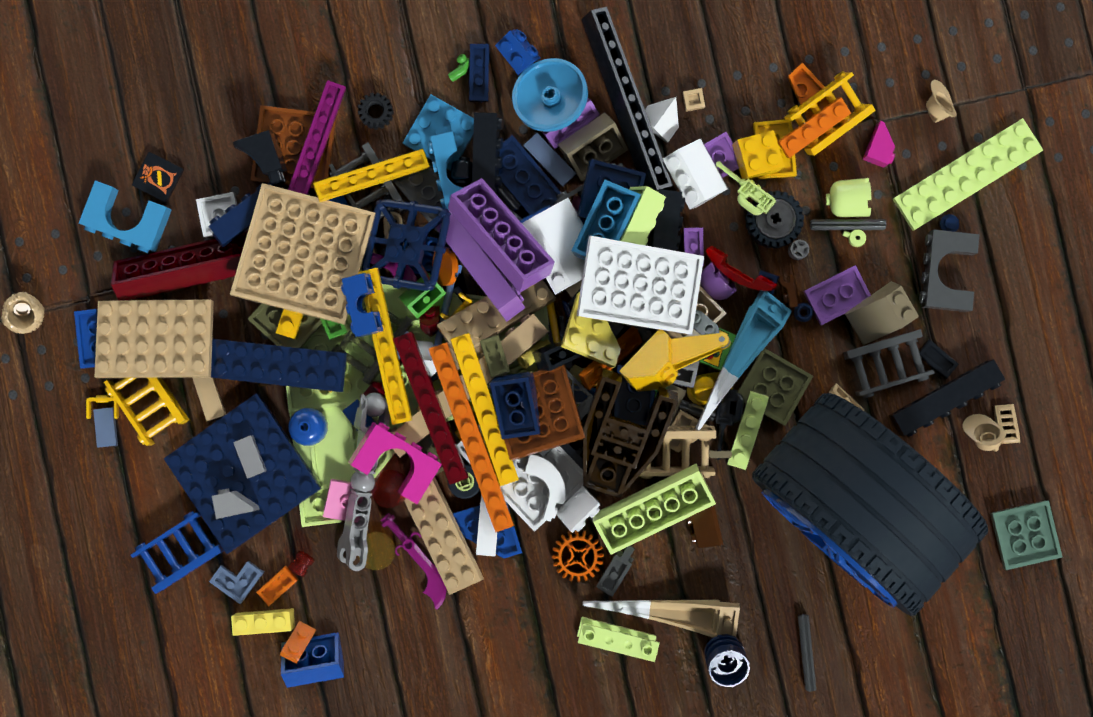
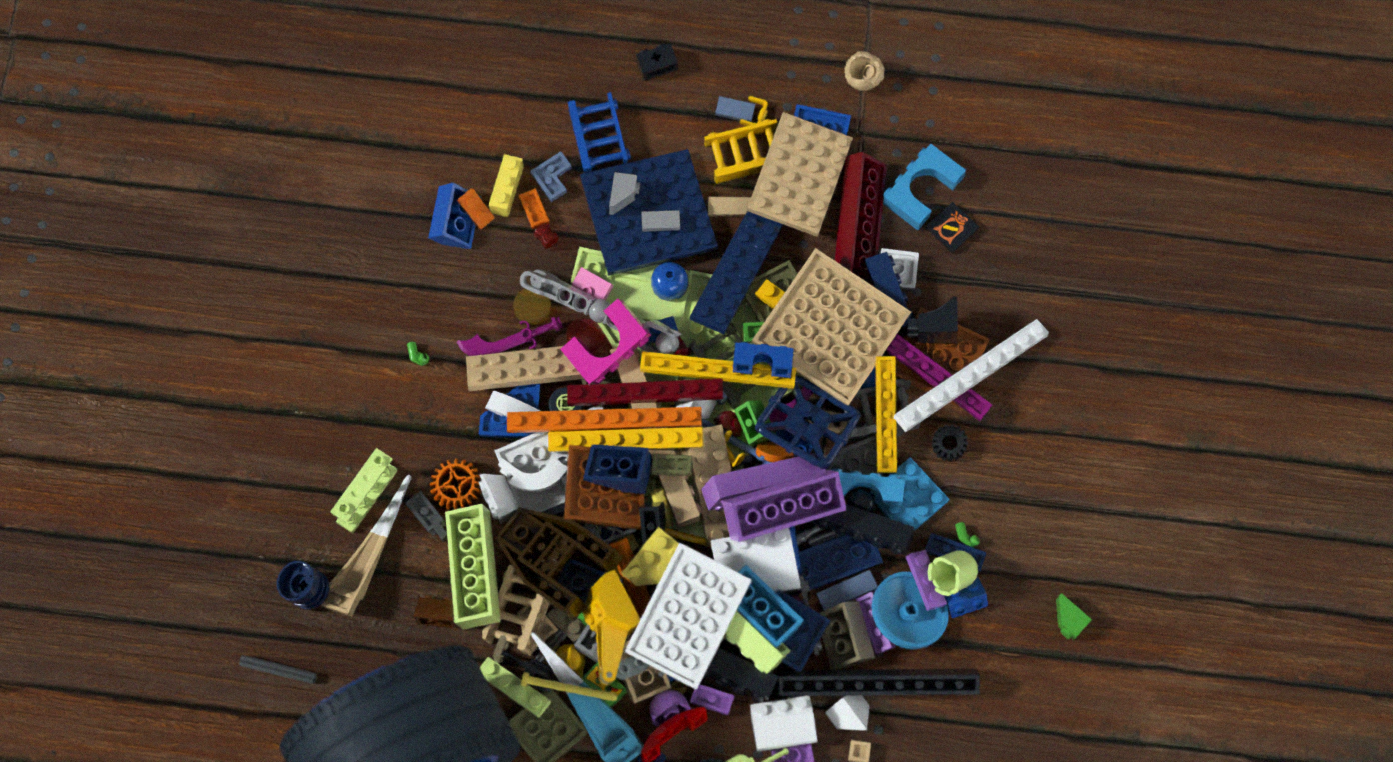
camera: 105 degrees right, 15 degrees down
(88, 528) = (665, 62): none -> black brick
(305, 108) = (970, 375): none -> white plate
(465, 642) = (415, 356): none -> bright green arm
(503, 63) = (952, 572): none -> yellowish green cylinder
(516, 89) = (919, 566): none -> medium lavender plate
(735, 381) = (526, 679): none -> light yellow bar

